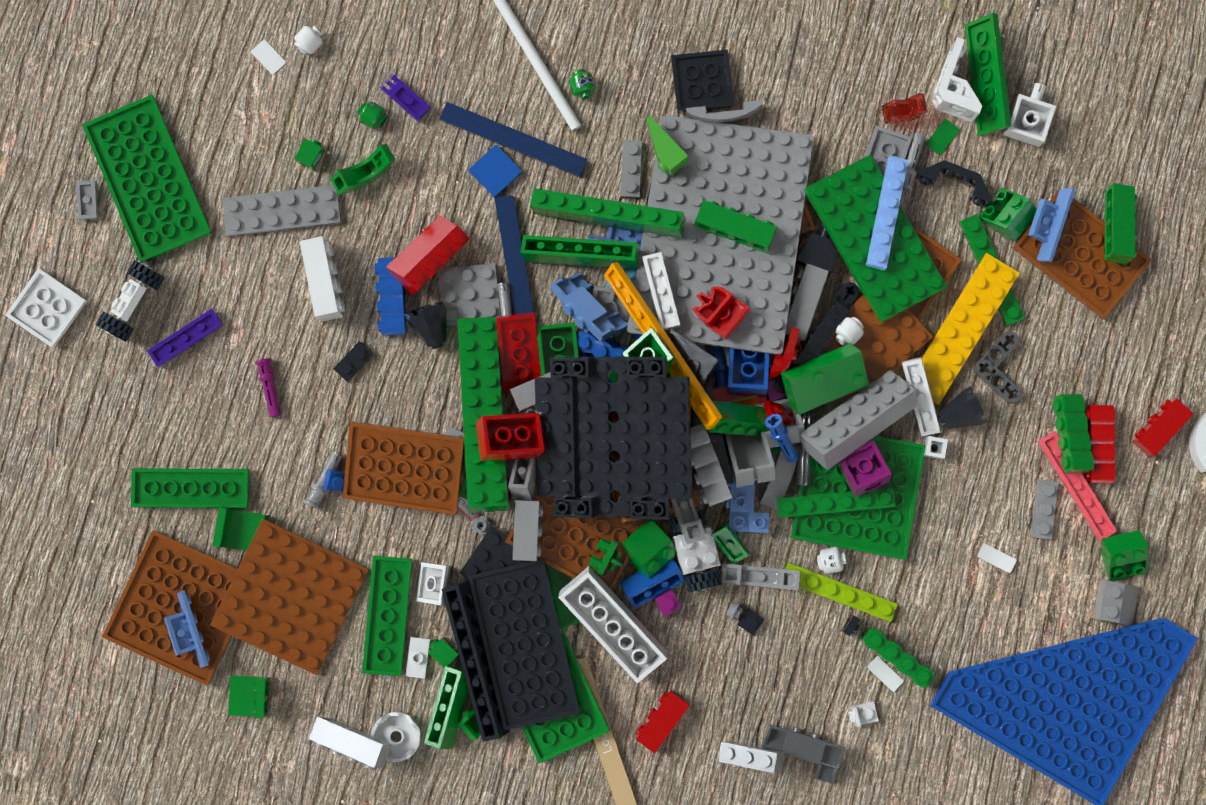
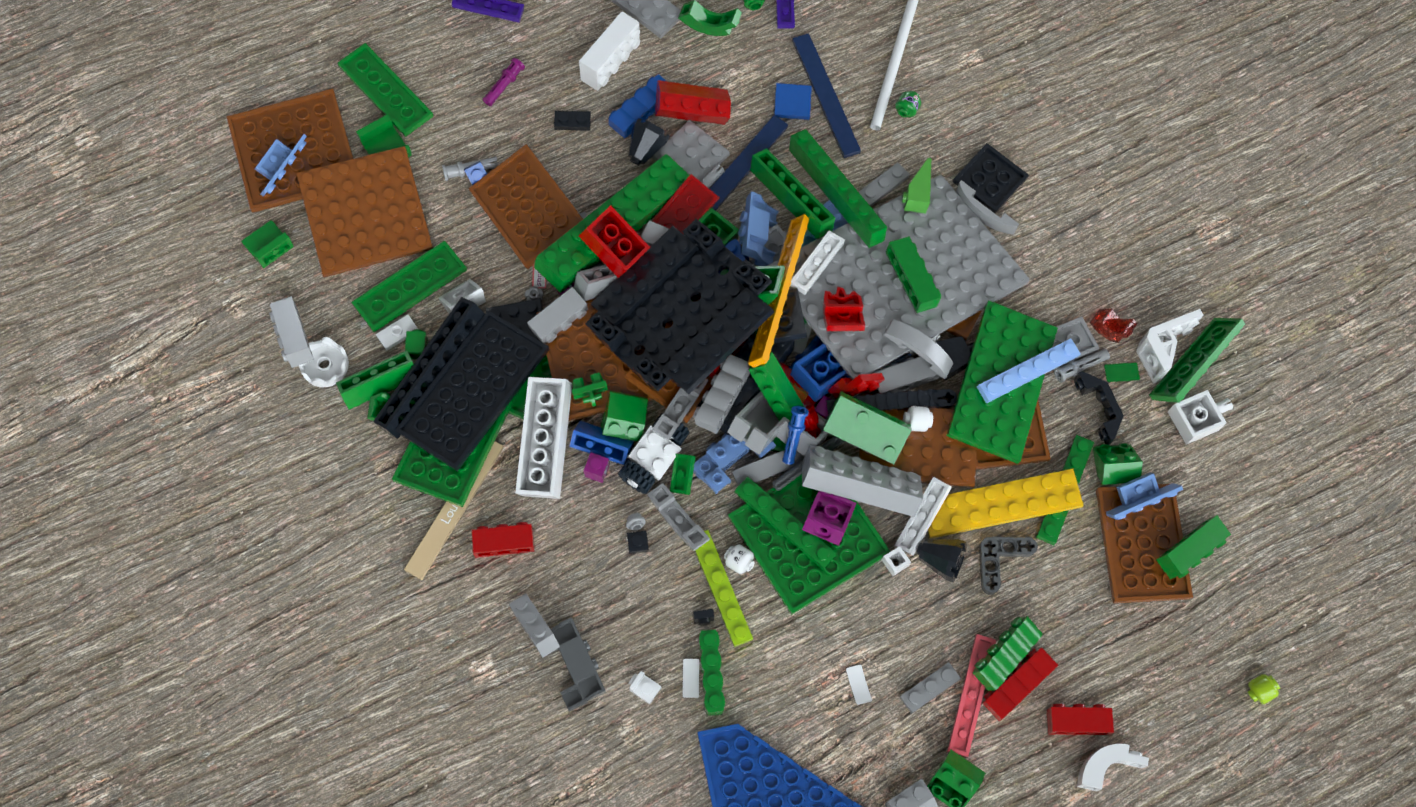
camera: 40 degrees right, 15 degrees down
(796, 277) = (921, 344): none -> light grey slope

